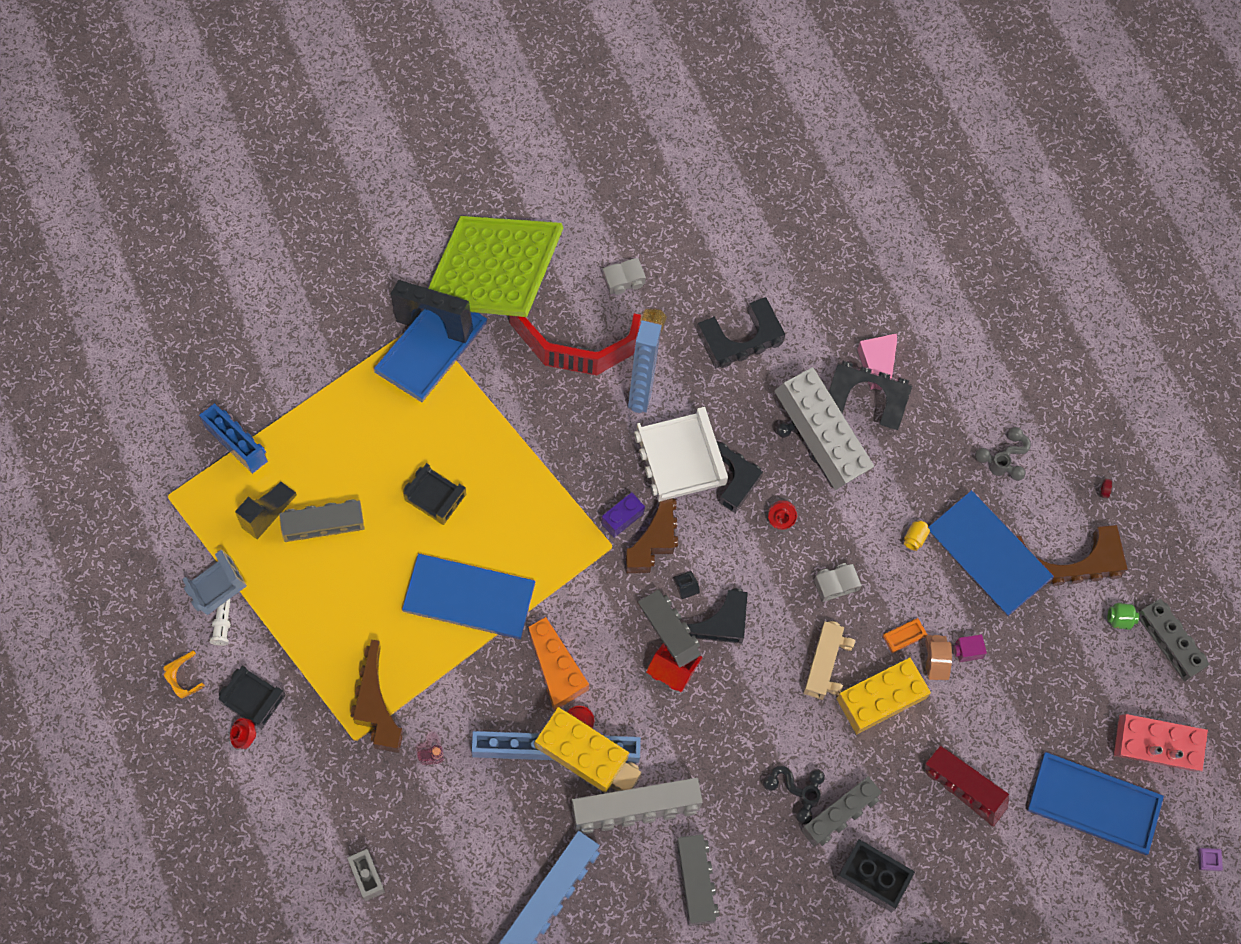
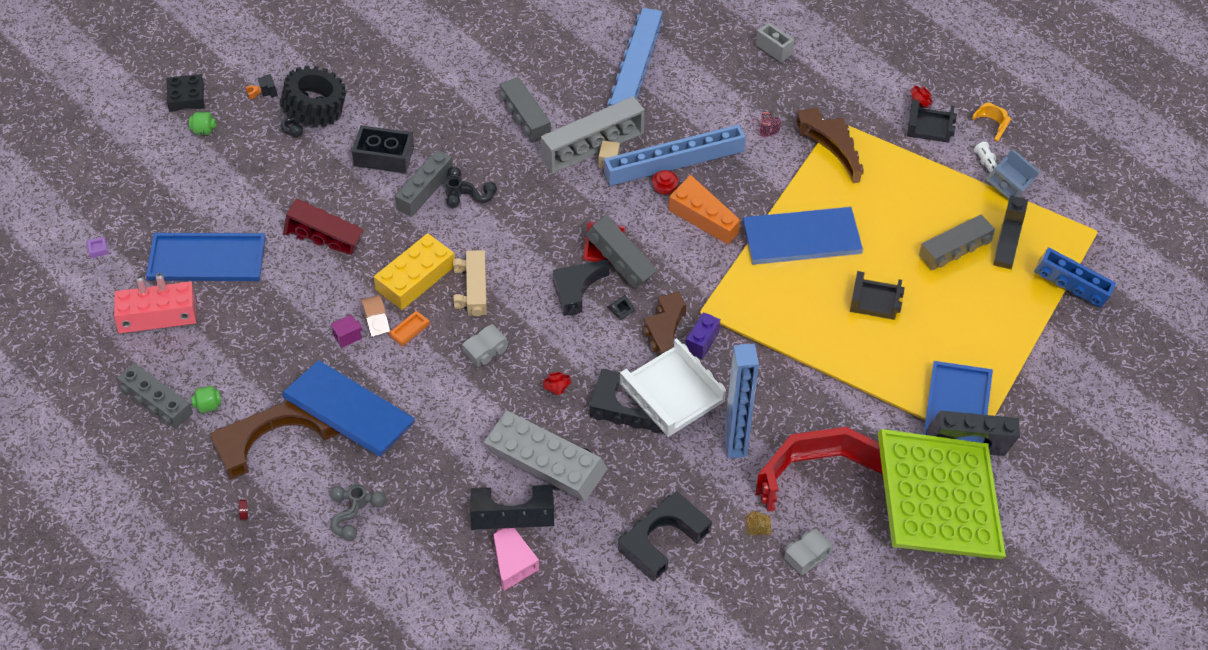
camera: 165 degrees right, 15 degrees down
(581, 749) = (652, 141): yellow brick -> none
(916, 535) = (423, 407): yellow brick -> none

